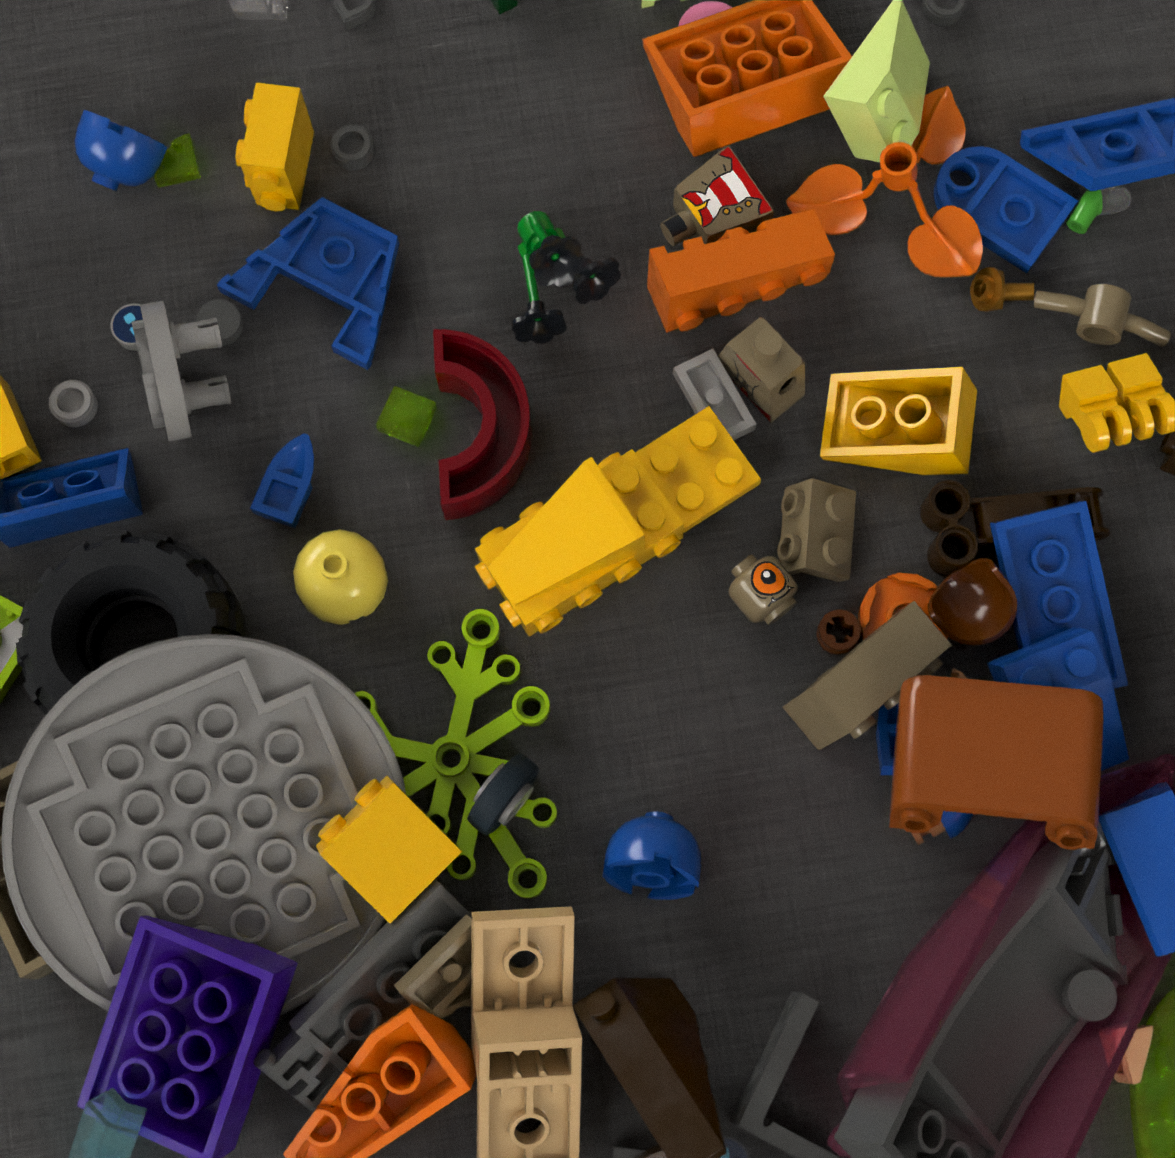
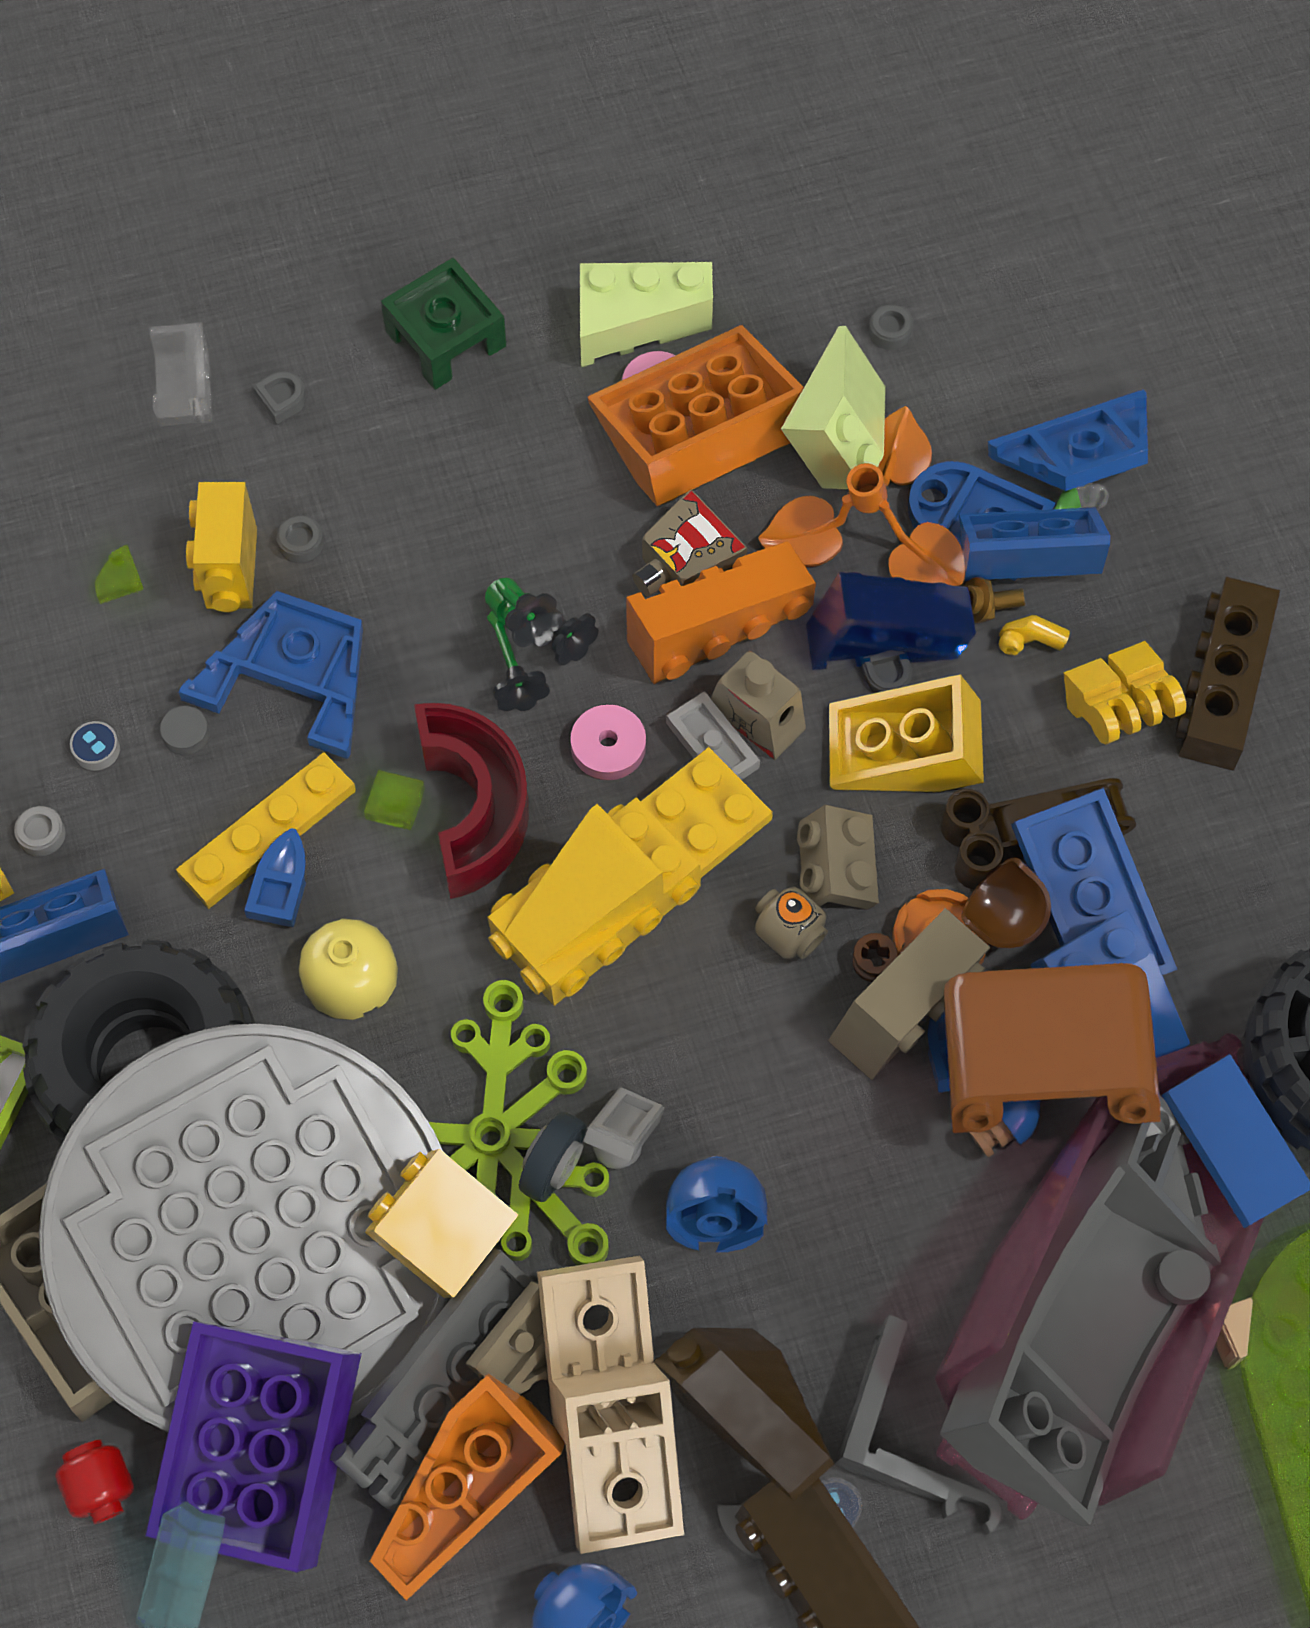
camera: 10 degrees left, 10 degrees down
(39, 1042) = (94, 1481): none -> red head
(116, 152) = (55, 570): blue cylinder -> none
(158, 348) = (135, 771): light grey piece -> none
(308, 411) = (239, 848): none -> yellow plate
(576, 769) = (623, 1128): none -> light grey tile
(619, 366) = (611, 761): none -> bright pink piece
(891, 348) = (885, 671): none -> dark grey tile
(901, 297) = (884, 614): none -> clear blue wedge
(1035, 324) = (1028, 629): none -> yellow arm
(1053, 239) = (1033, 543): none -> blue slope
(1103, 315) = (1097, 611): dark tan piece -> none

